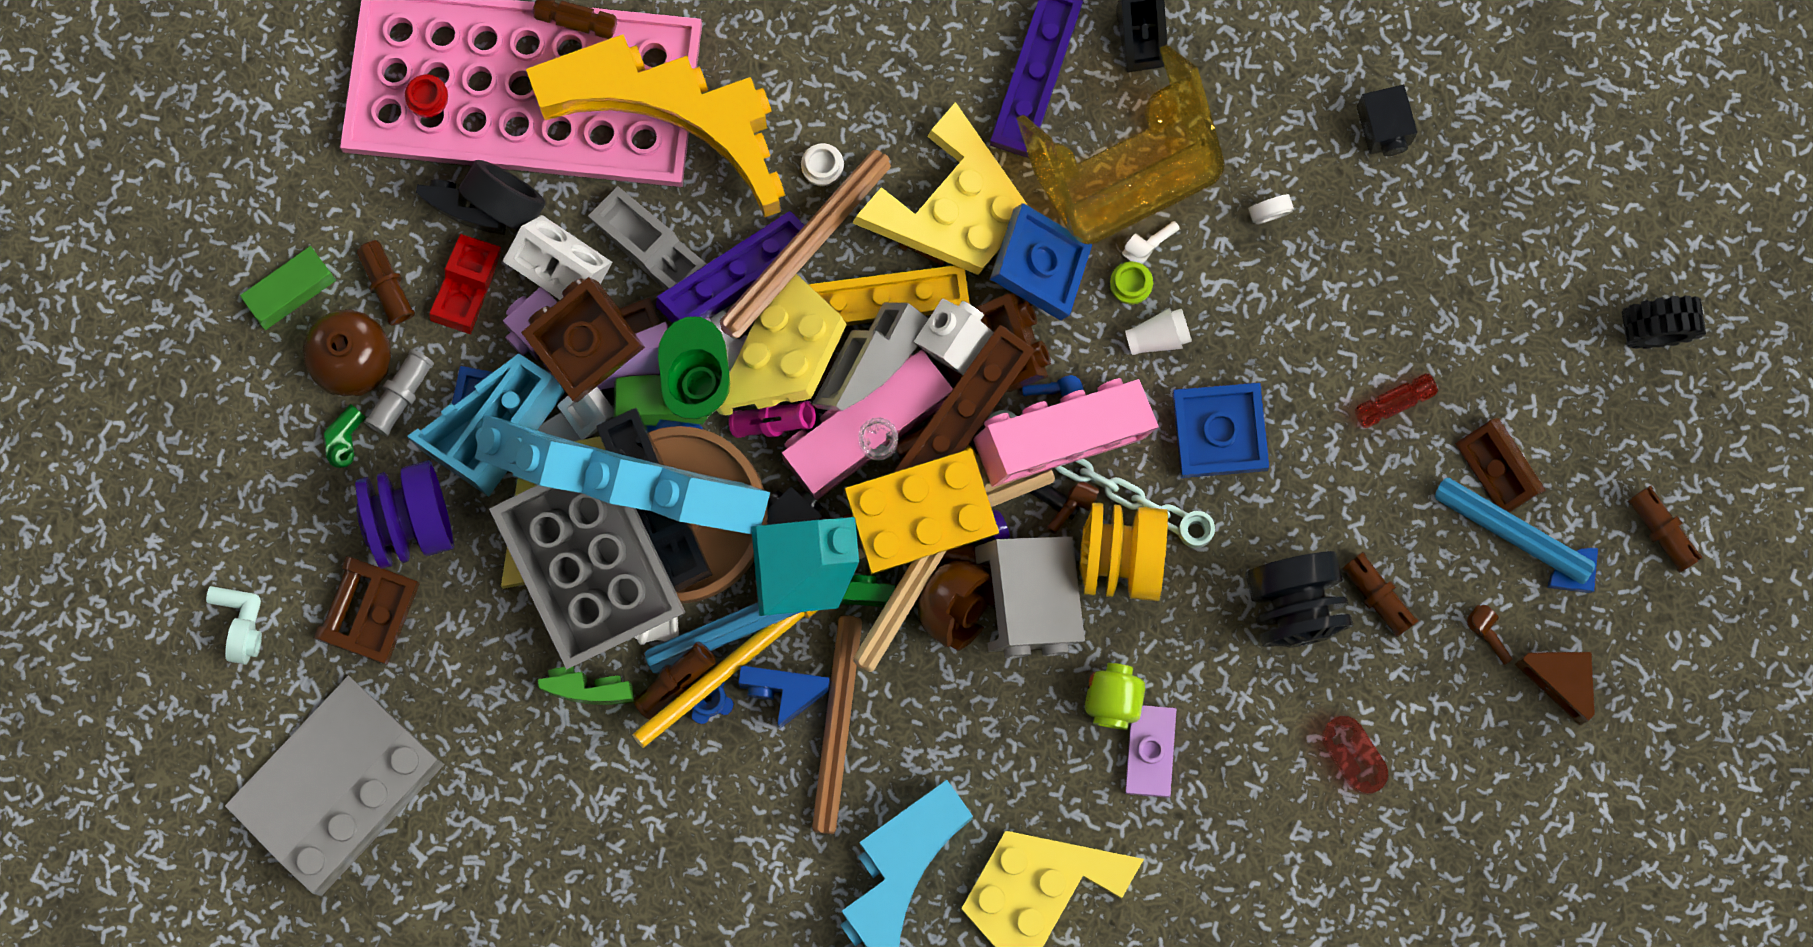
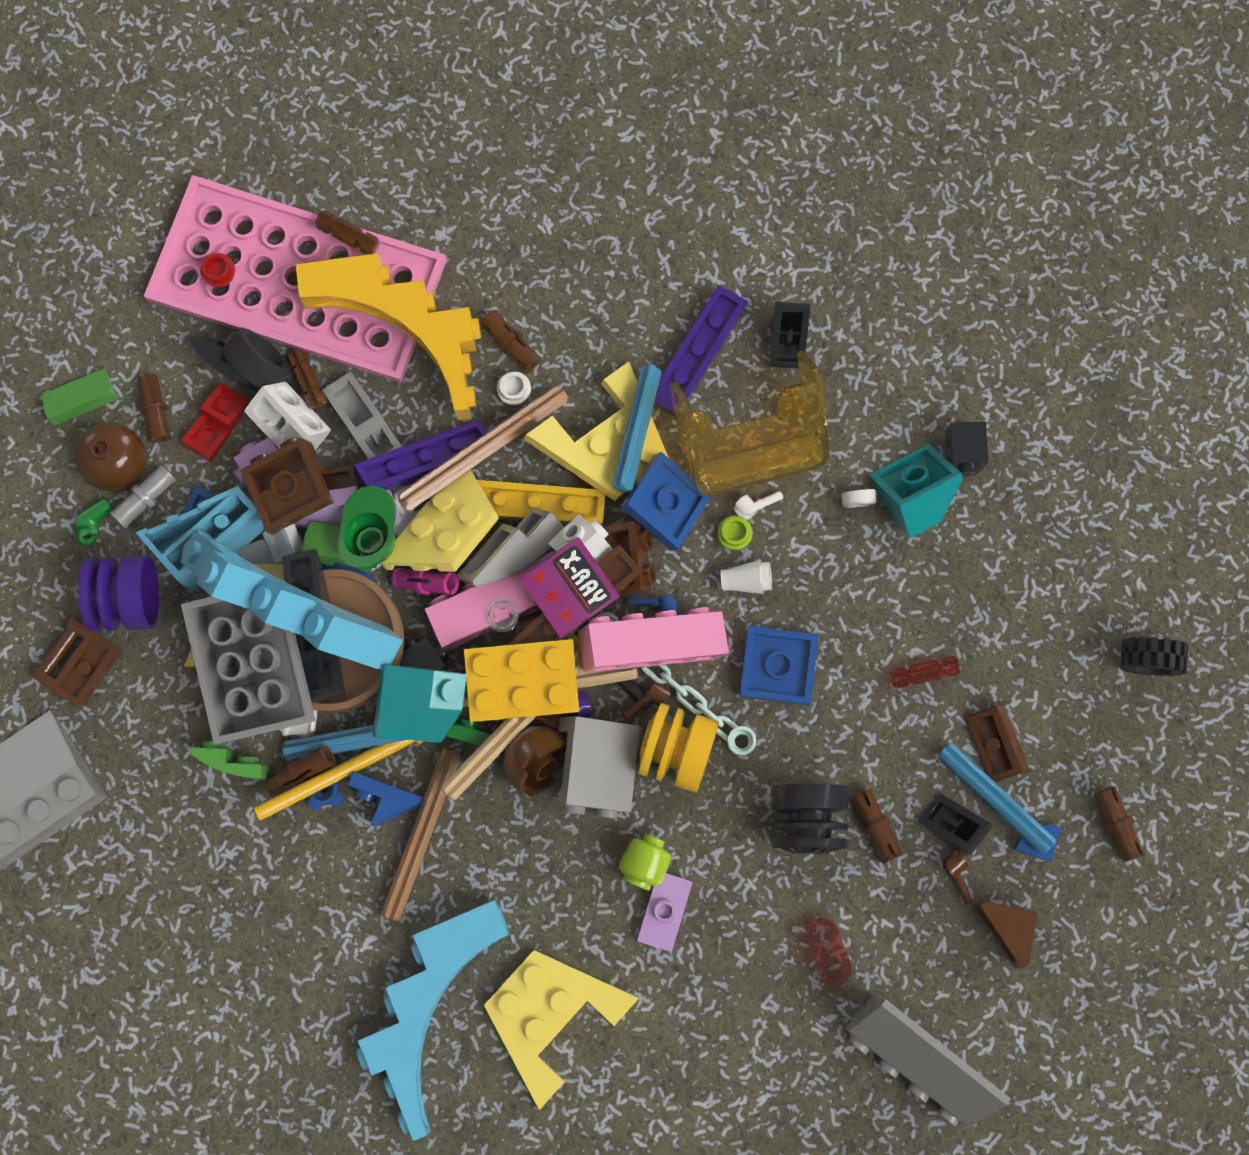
camera: 15 degrees right, 0 degrees up
(567, 207) = (307, 380): none -> reddish brown axle
(805, 108) = (510, 341): none -> reddish brown pin
(953, 387) = (569, 587): none -> tile
(986, 181) = (637, 428): none -> dark azure axle
(1339, 182) = (917, 489): none -> teal slope
(1472, 572) = (955, 825): none -> black slope
(1498, 853) = (924, 1062): none -> light grey slope

